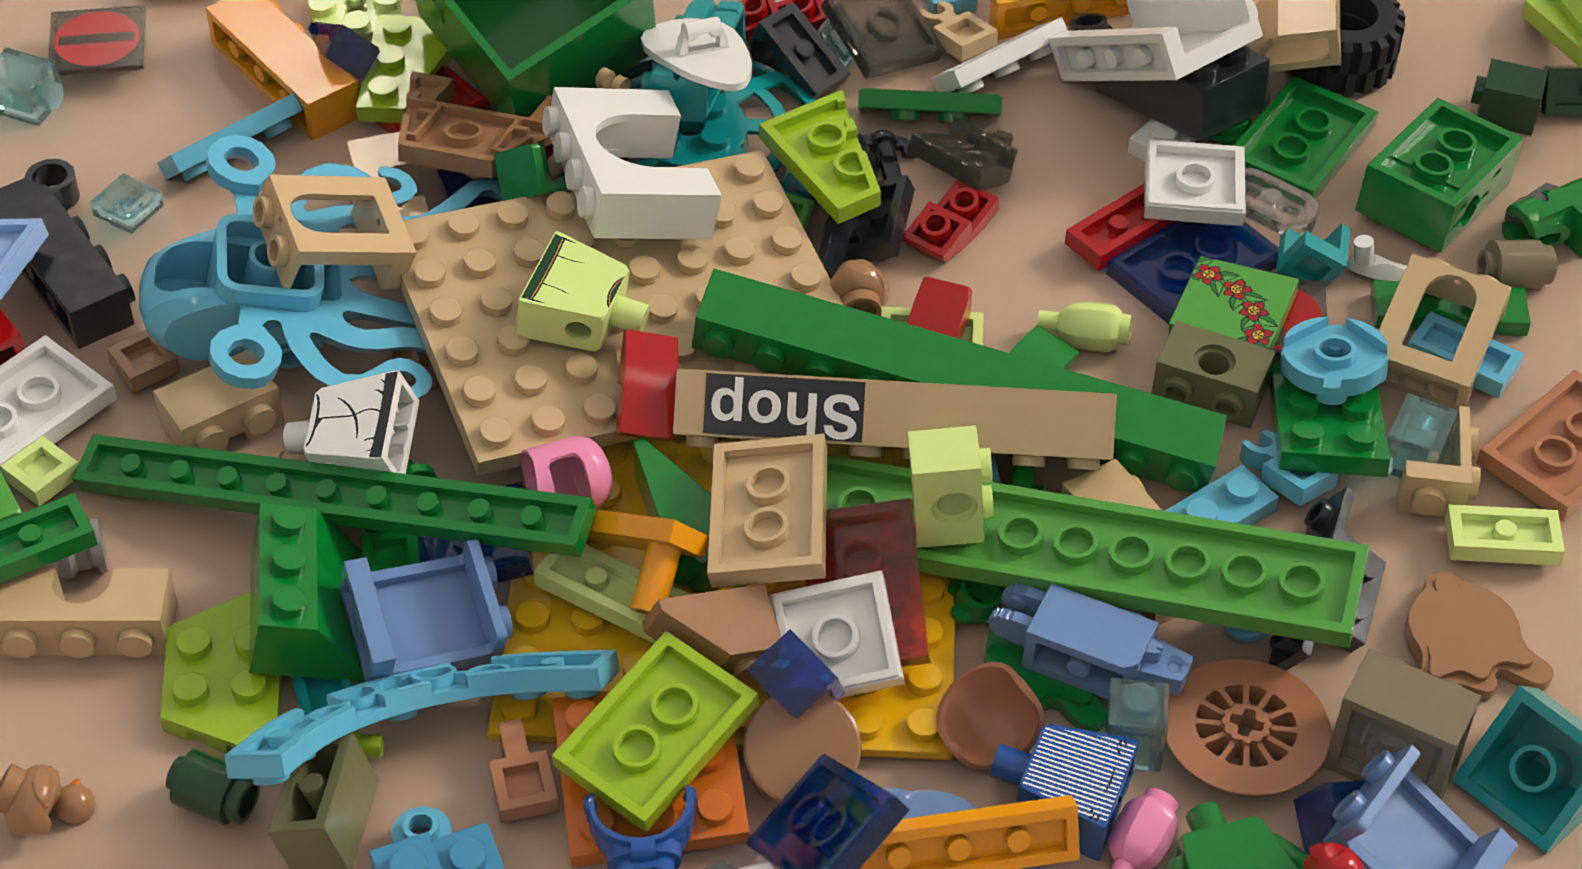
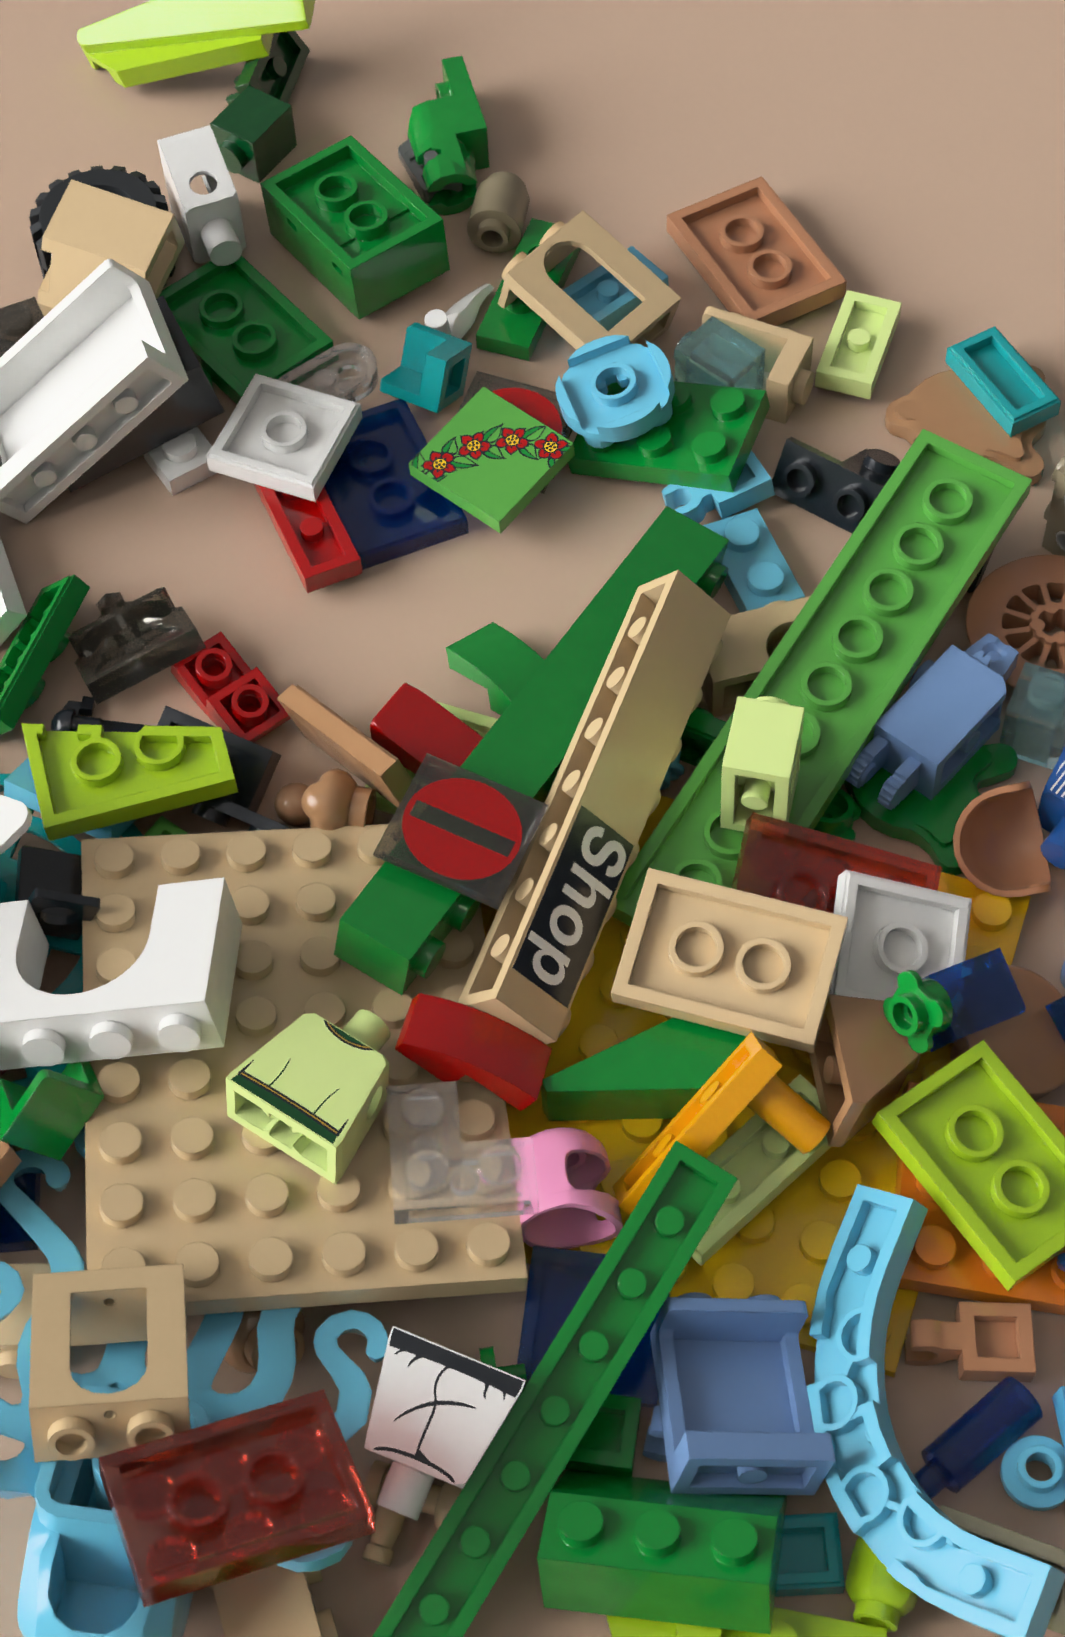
camera: 70 degrees left, 10 degrees up
(243, 302) = (235, 1497): none -> clear red plate
(440, 788) = (978, 1437): none -> clear blue cylinder
(542, 382) = (447, 1178): none -> clear plate
(712, 141) = (54, 890): none -> black bracket
(759, 633) = (918, 1010): none -> green plate
(819, 324) = (461, 831): none -> piece
(896, 283) = (346, 744): none -> medium nougat tile
(1089, 325) = (455, 601): yellowish green plant -> none
(1213, 372) = (571, 511): olive brick -> none
(1407, 73) = (209, 221): none -> white torso
(1510, 641) = (1003, 381): none -> teal tile

